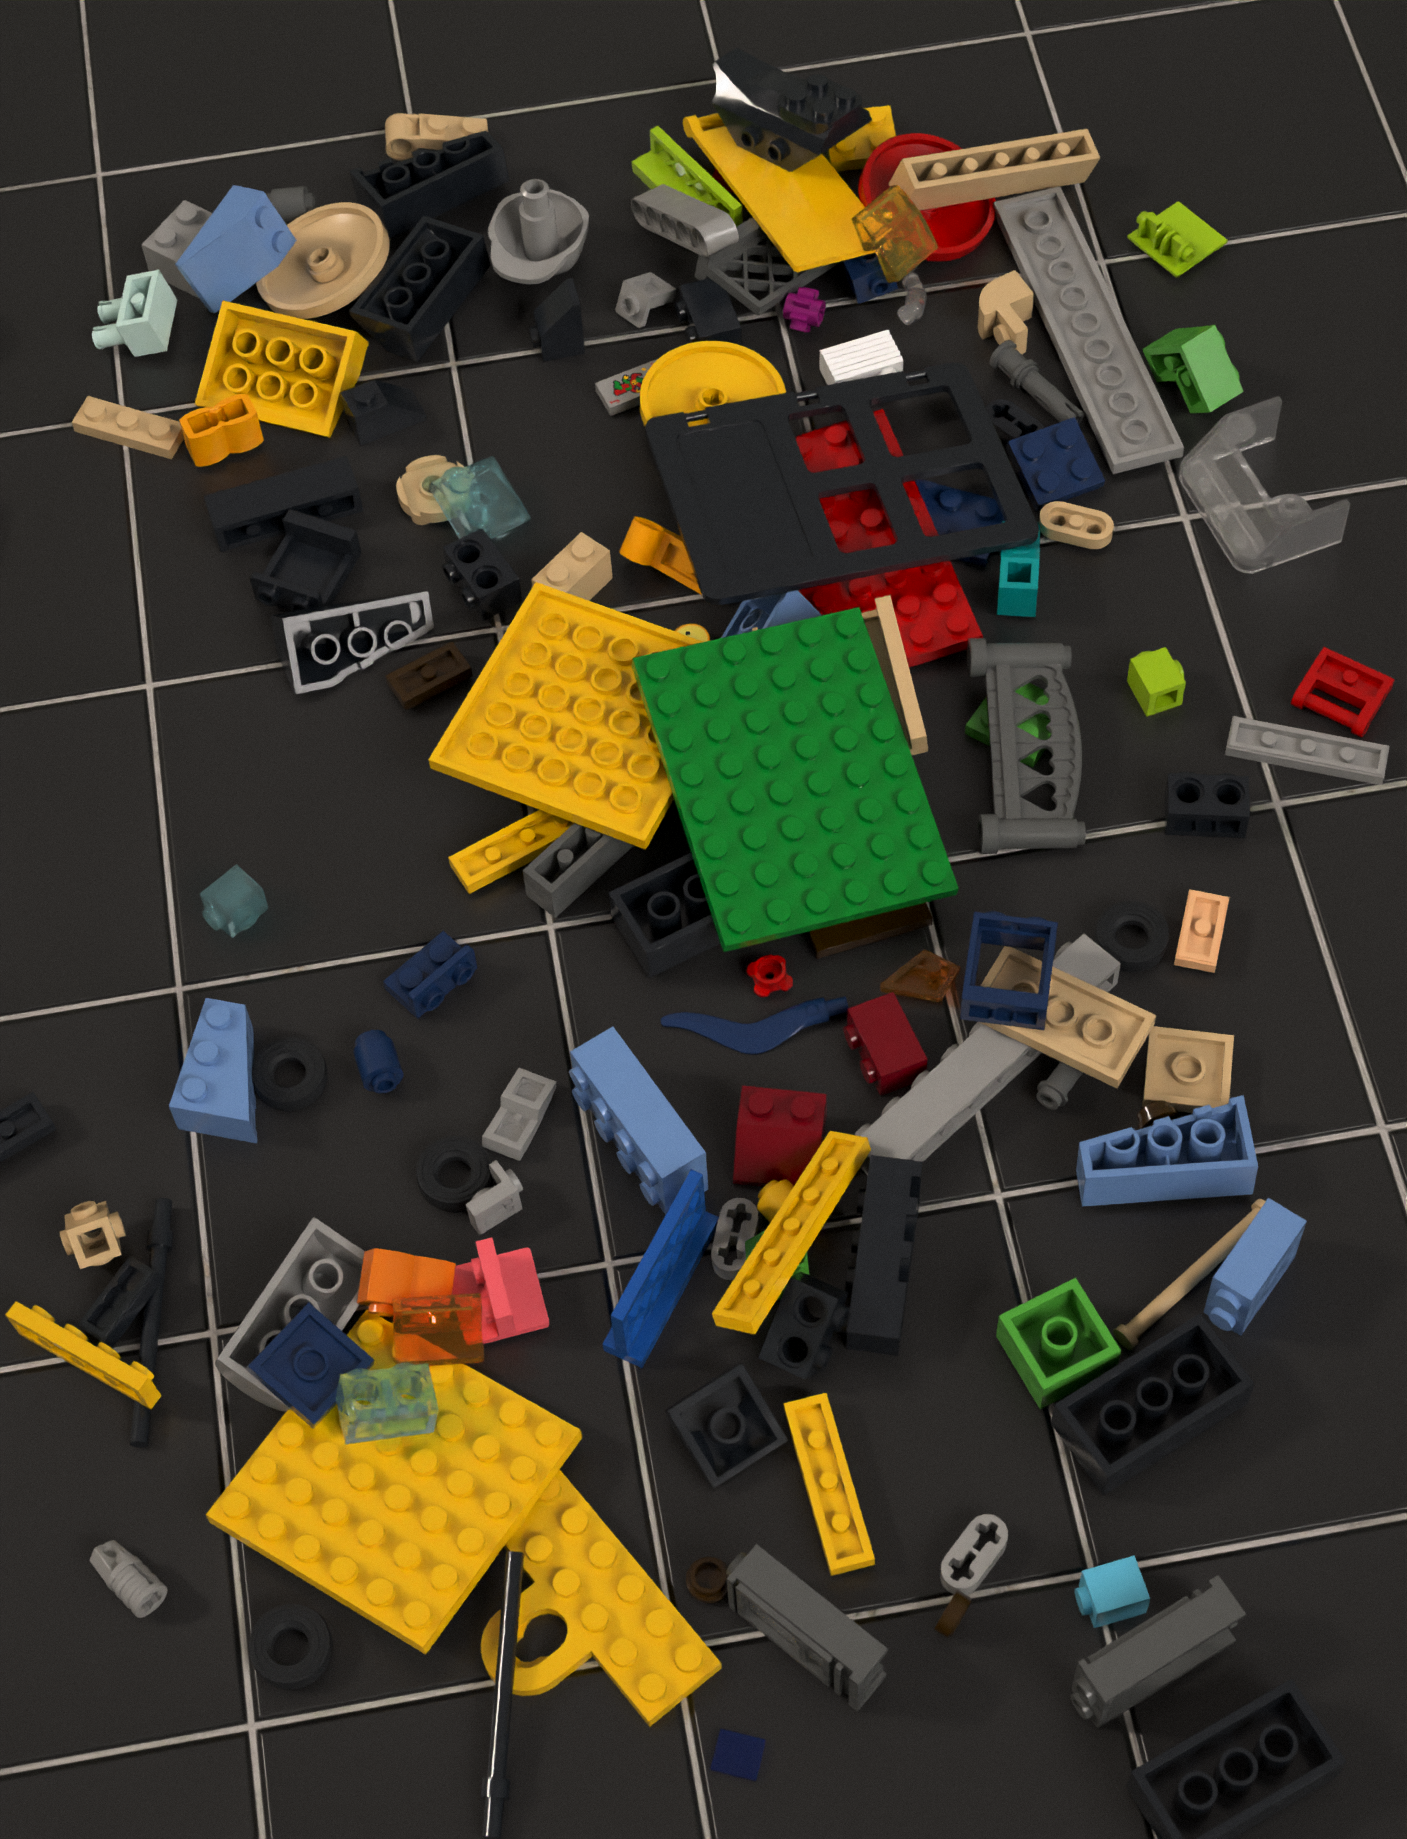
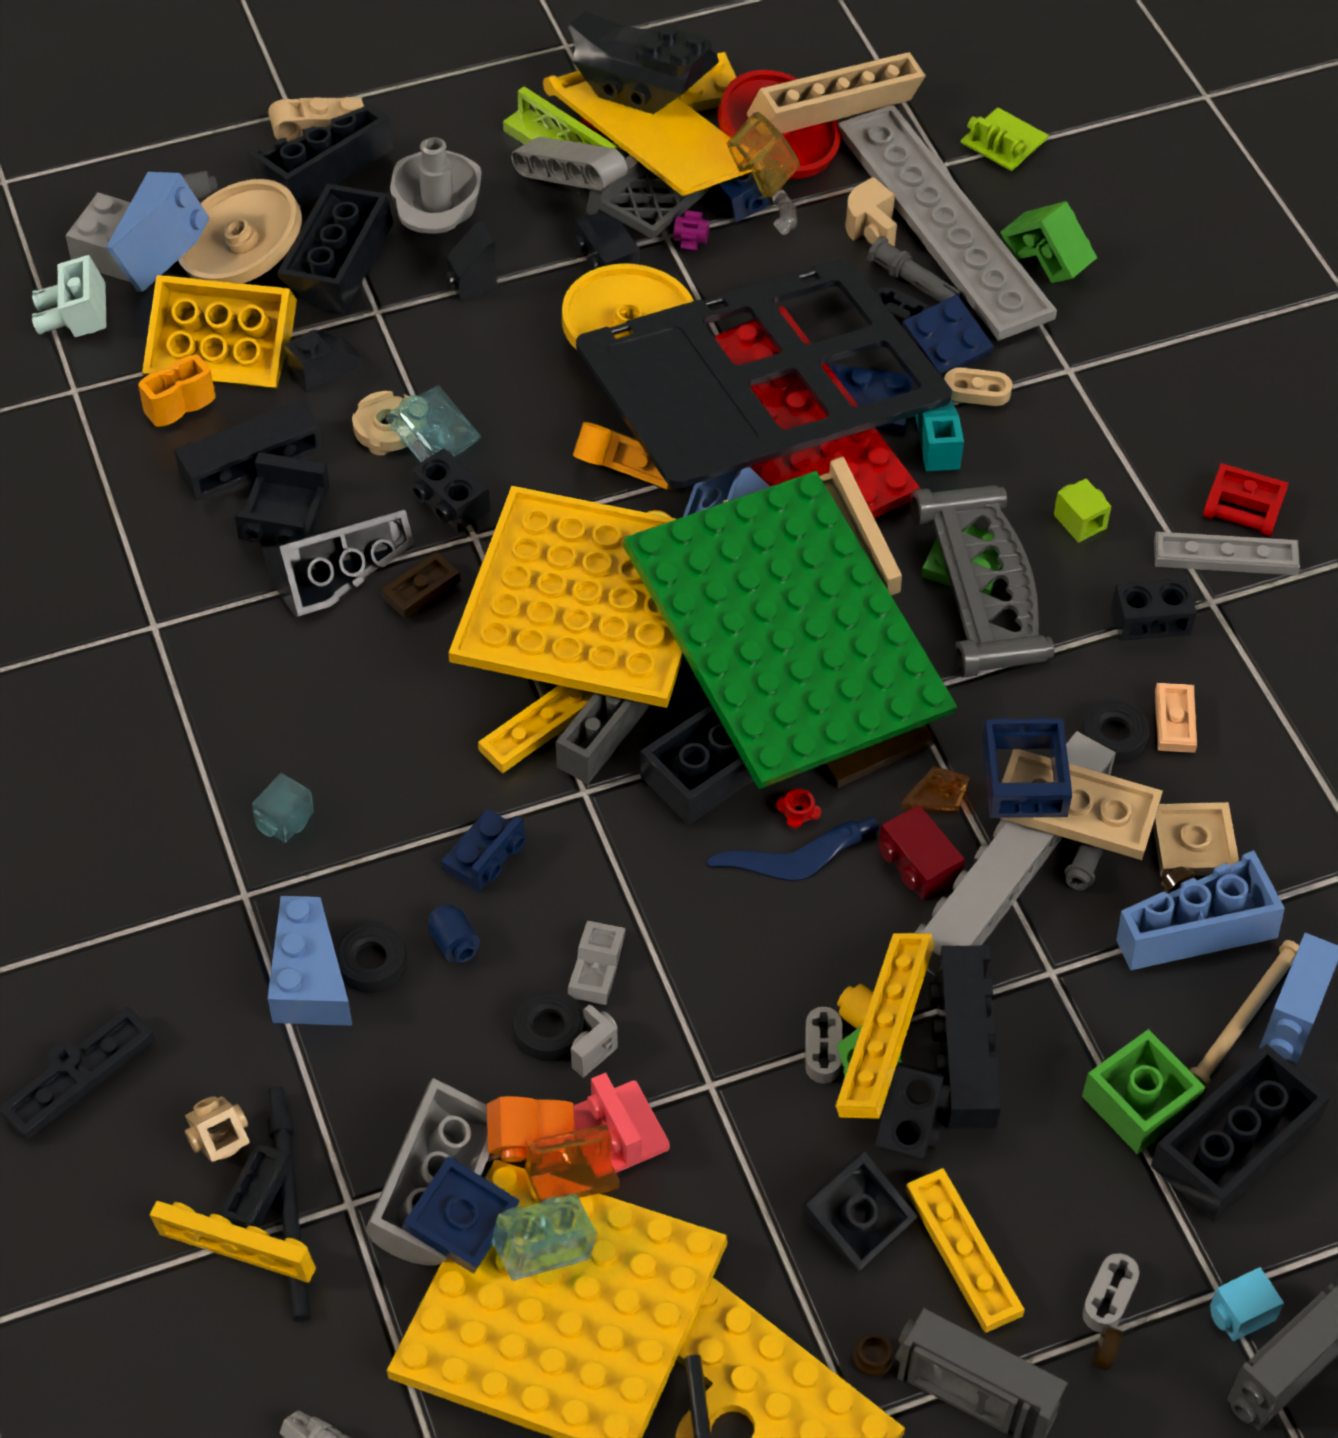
camera: 15 degrees left, 5 degrees down
(128, 427) = (84, 399): tan plate -> none
(578, 569) = (541, 470): tan brick -> none
(622, 390) = (542, 316): light grey tile -> none
(635, 1117) = (715, 950): medium blue brick -> none
(641, 295) = (539, 234): light grey bracket -> none
(662, 1274) = (766, 1087): blue fence -> none
(777, 1134) = (843, 946): dark red slope -> none
(861, 358) = (752, 266): white brick -> none
(1235, 506) = (1117, 354): clear windscreen -> none

